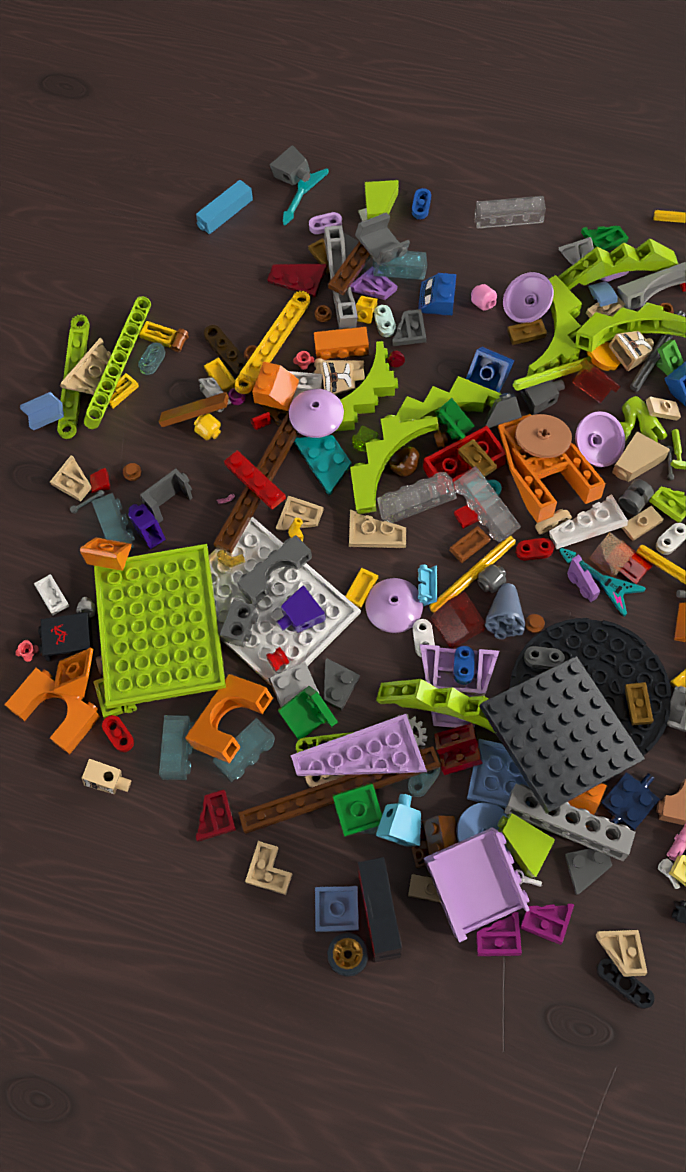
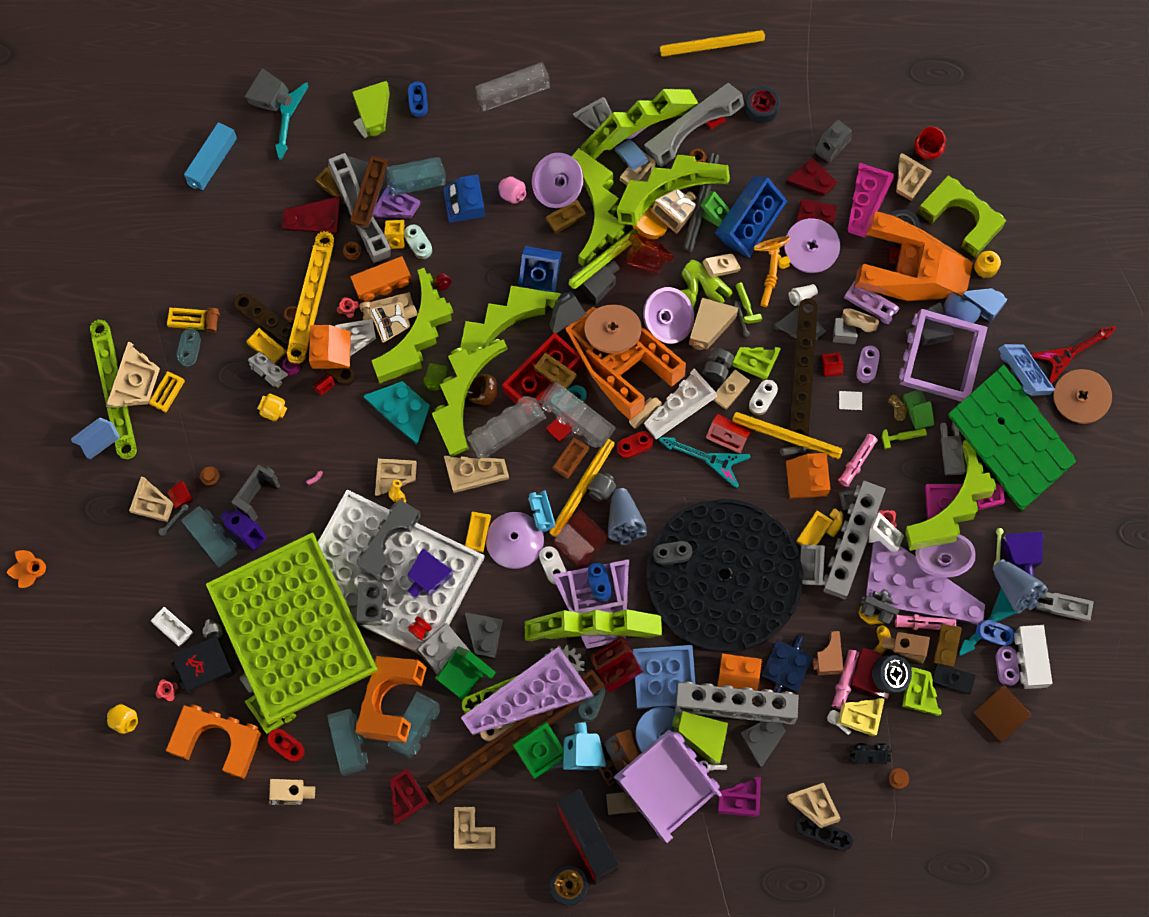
camera: 20 degrees left, 5 degrees up
(73, 674) = (224, 700): orange slope -> none
(106, 553) = (216, 570): orange slope -> none
(139, 313) = (156, 370): lime beam -> none
(194, 409) = (253, 394): dark orange tile -> none
(228, 560) = (340, 543): clear yellow arm -> none
(249, 500) = (346, 443): reddish brown plate -> none
(254, 480) = (340, 452): red plate -> none
(316, 421) = (383, 374): lavender dish -> none
(318, 223) = (322, 146): lavender plate -> none
(336, 909) = (546, 847): medium blue plate -> none
(379, 239) = (390, 159): dark grey panel -> none
(410, 329) = (447, 244): dark grey wing -> none
(440, 438) = (511, 355): dark orange plate -> none
(454, 419) = (519, 332): green bracket -> none
(500, 938) = (703, 827): magenta wing -> none
(534, 623) = (654, 520): dark orange plate -> none
(561, 734) = (707, 622): black plate -> none
(582, 579) = (689, 464): medium lavender wing -> none
(606, 237) = (617, 91): green wing -> none
(611, 555) = (709, 431): clear orange piece -> none
(638, 704) = (771, 572): pearl gold plate -> none

